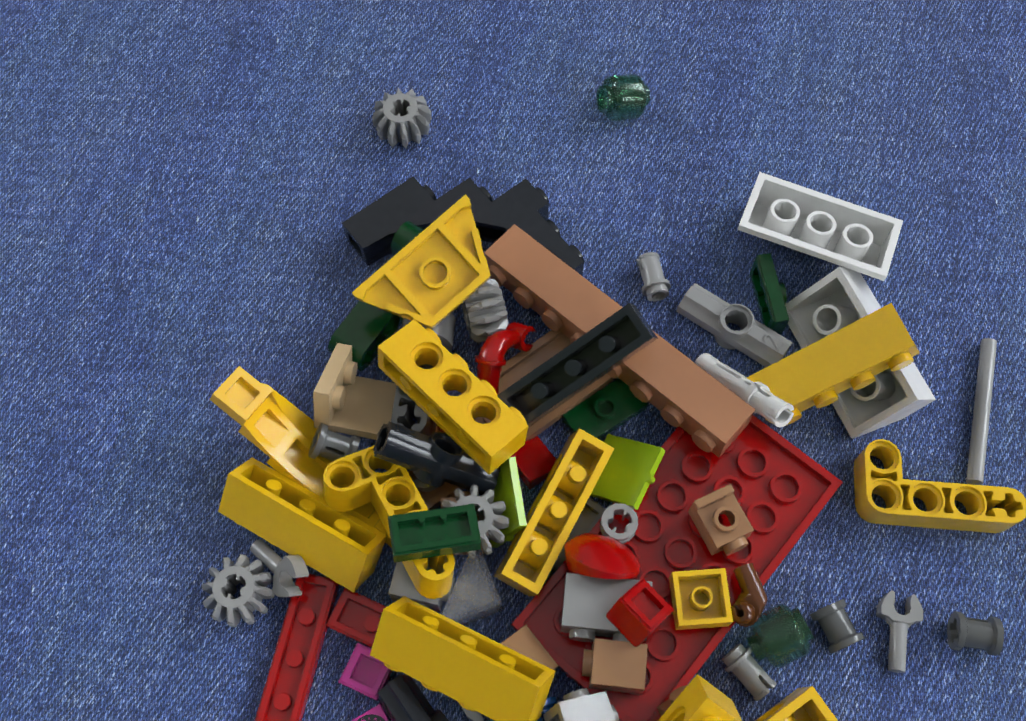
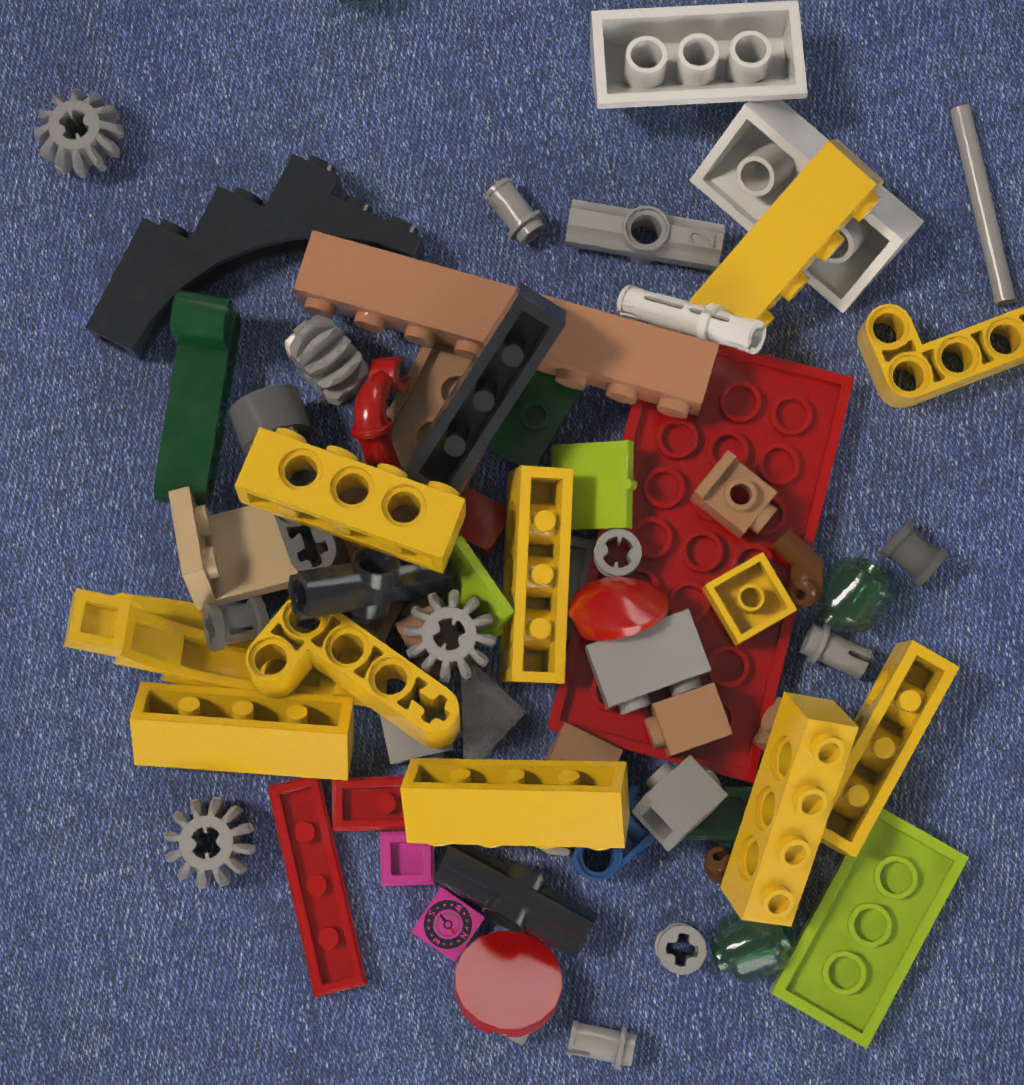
camera: 25 degrees left, 15 degrees up
(283, 569) = (251, 794): light grey bar -> none
(431, 271) = (246, 348): yellow wing -> none
(434, 533) = (417, 676): dark green plate -> none
(639, 612) = (690, 652): red slope -> none
(769, 293) = (671, 170): dark green plate -> none
(899, 627) = (981, 519): light grey bar -> none

